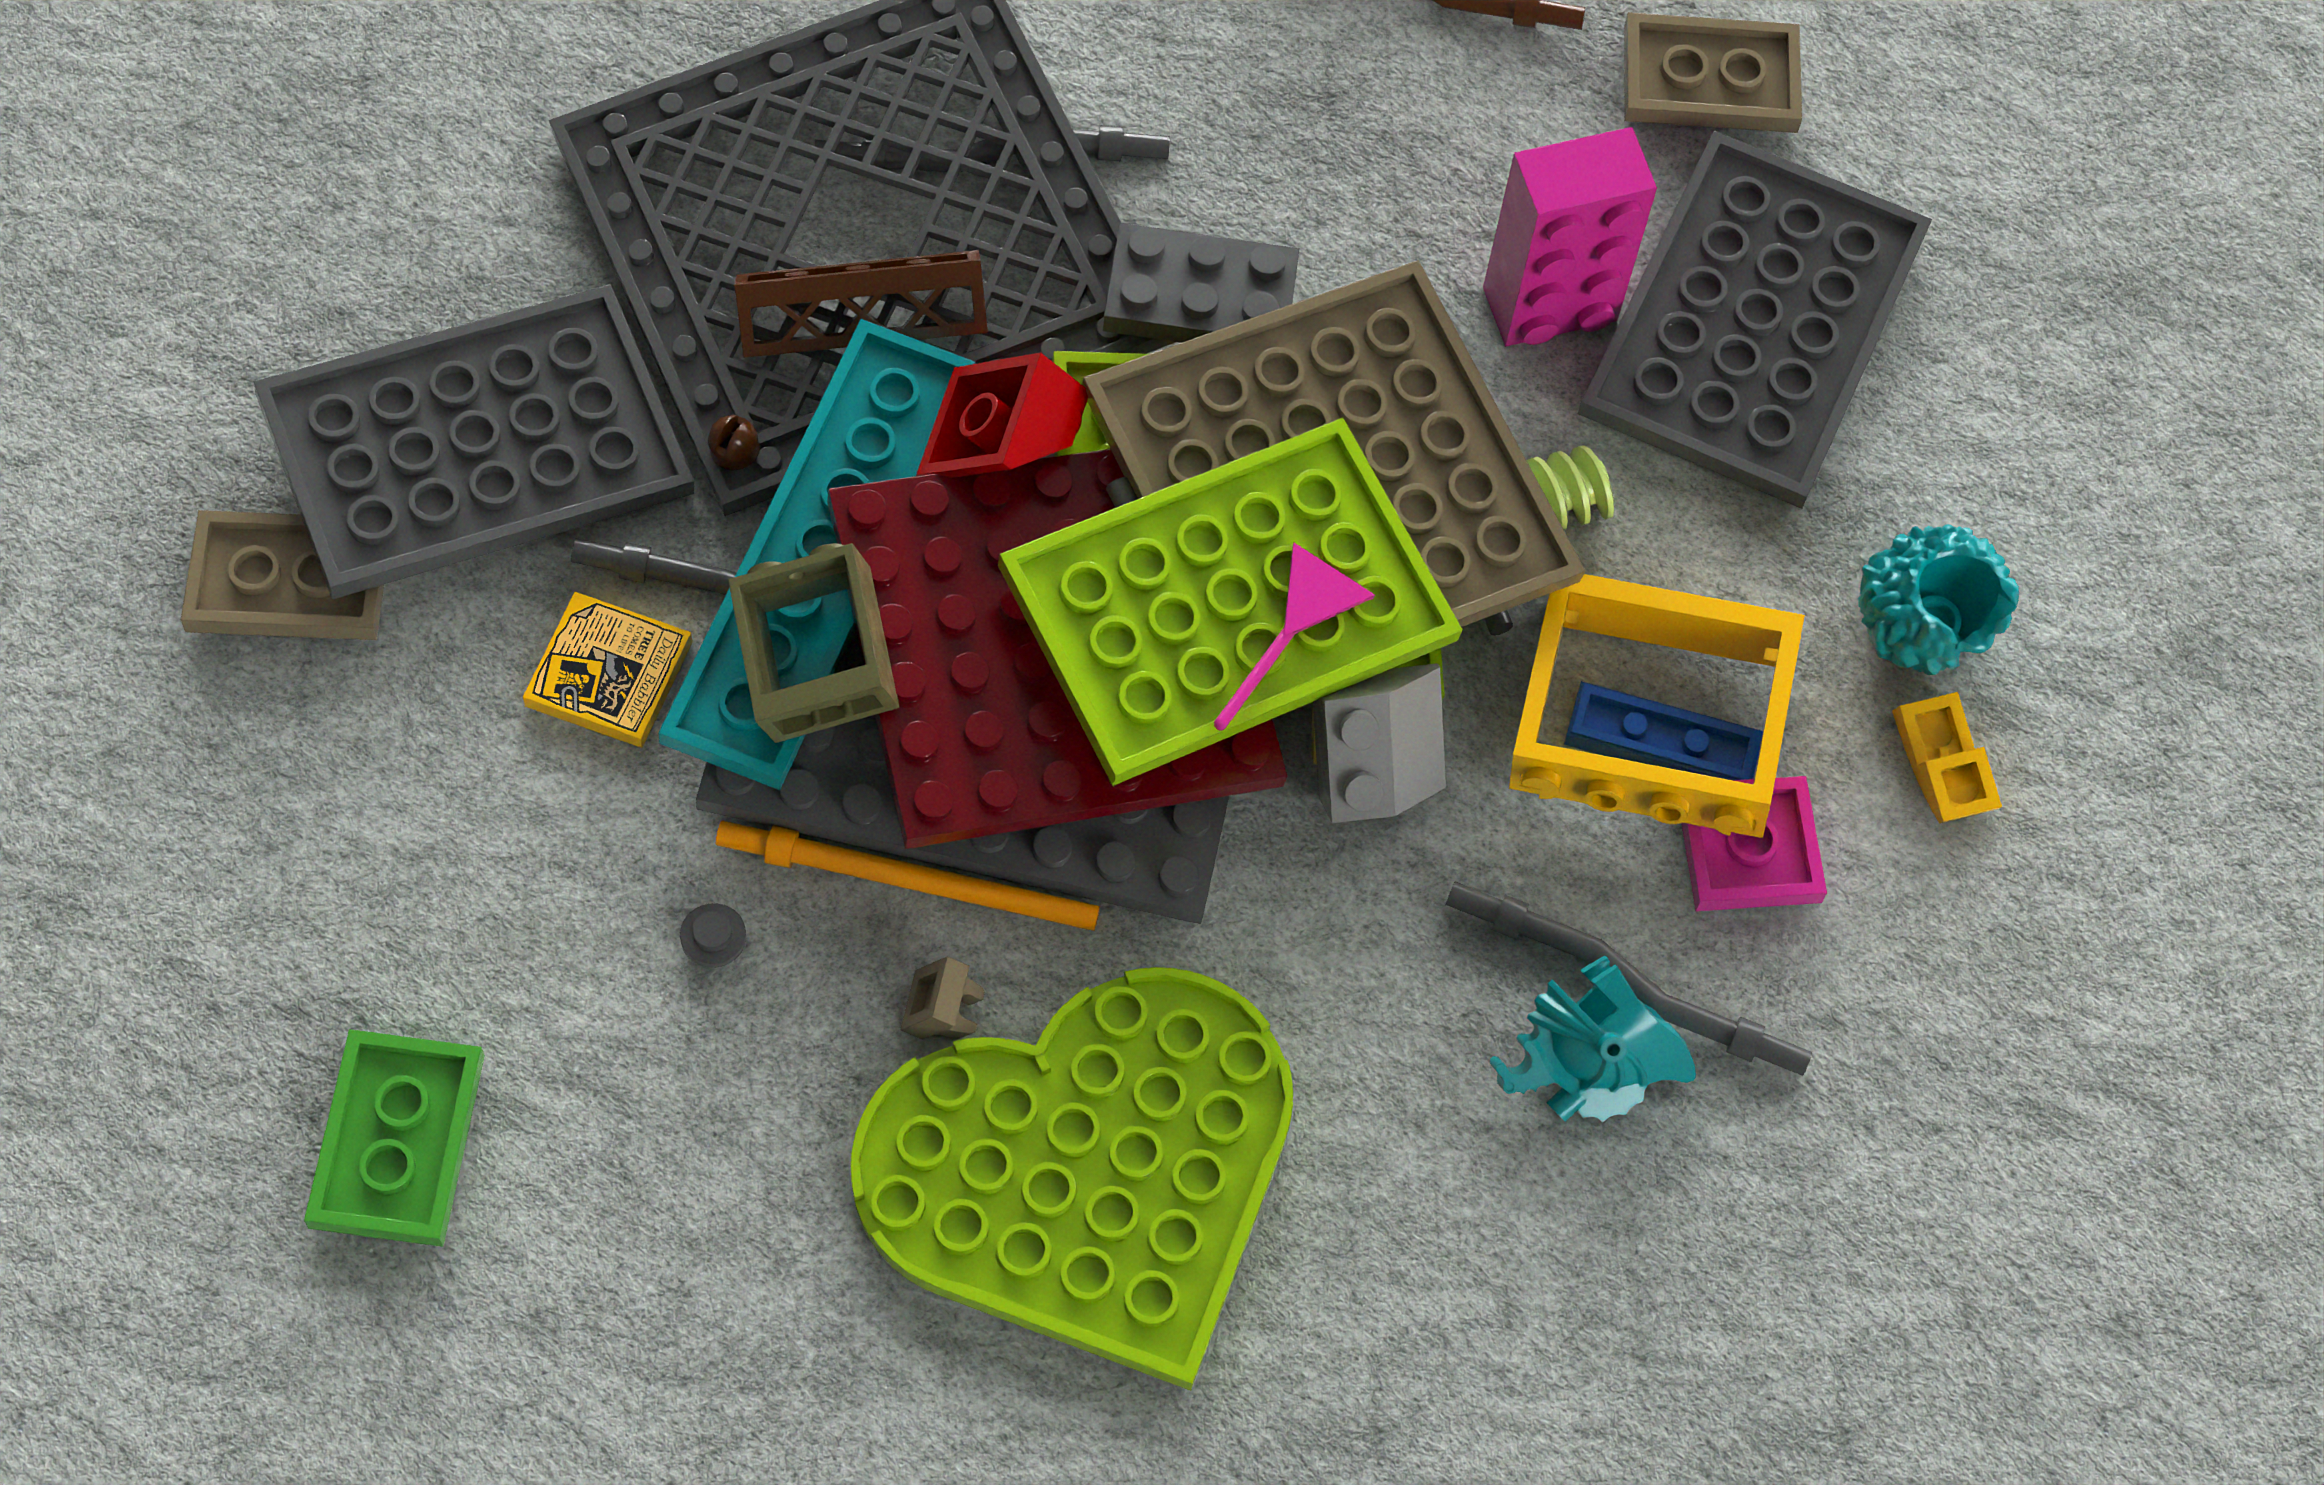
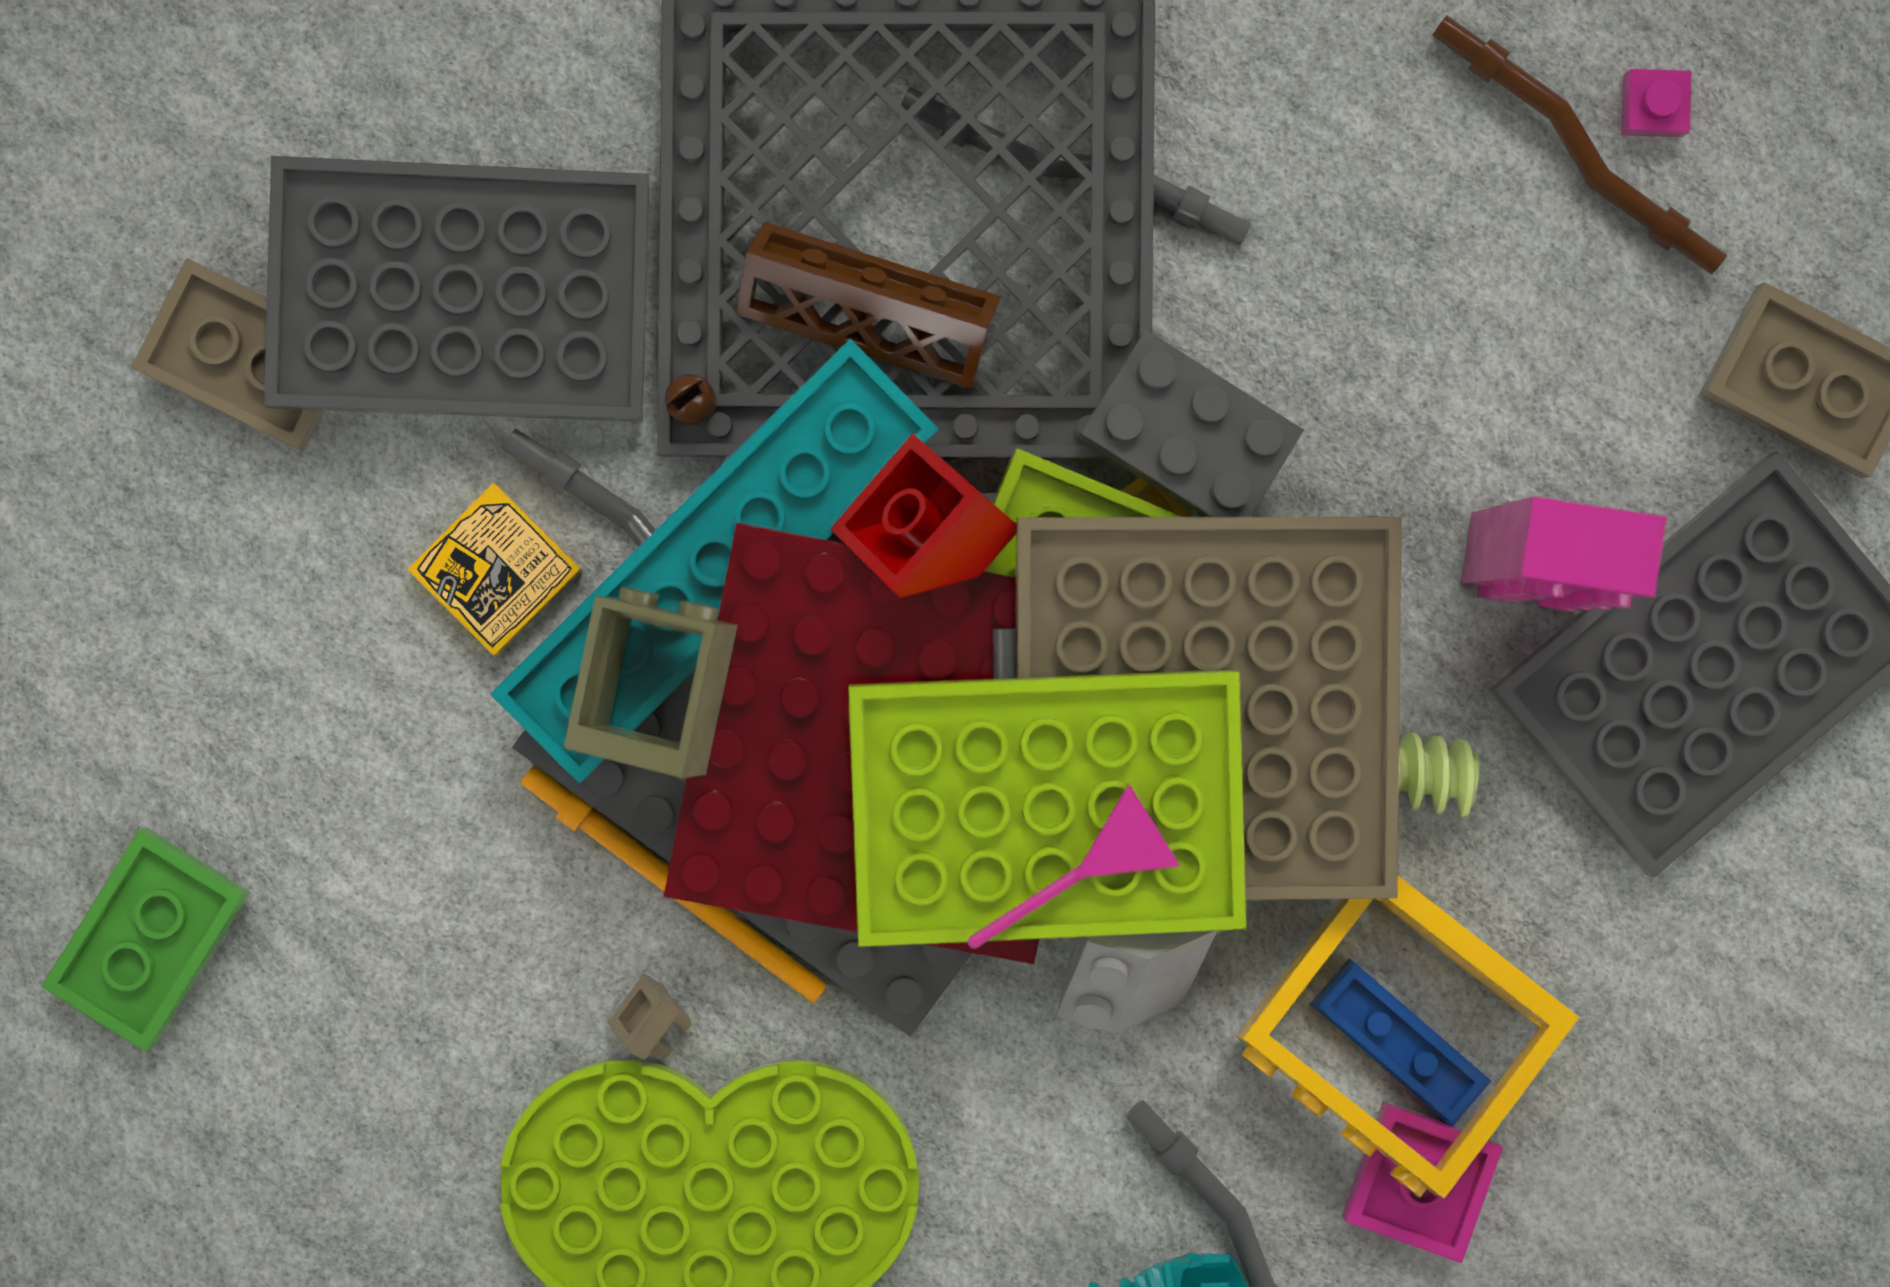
camera: 30 degrees right, 25 degrees up
(713, 935) = (483, 869): dark grey plate -> none
(1936, 598) = (1713, 1035): teal hair -> none
(1944, 758) = (1640, 1174): yellow slope -> none

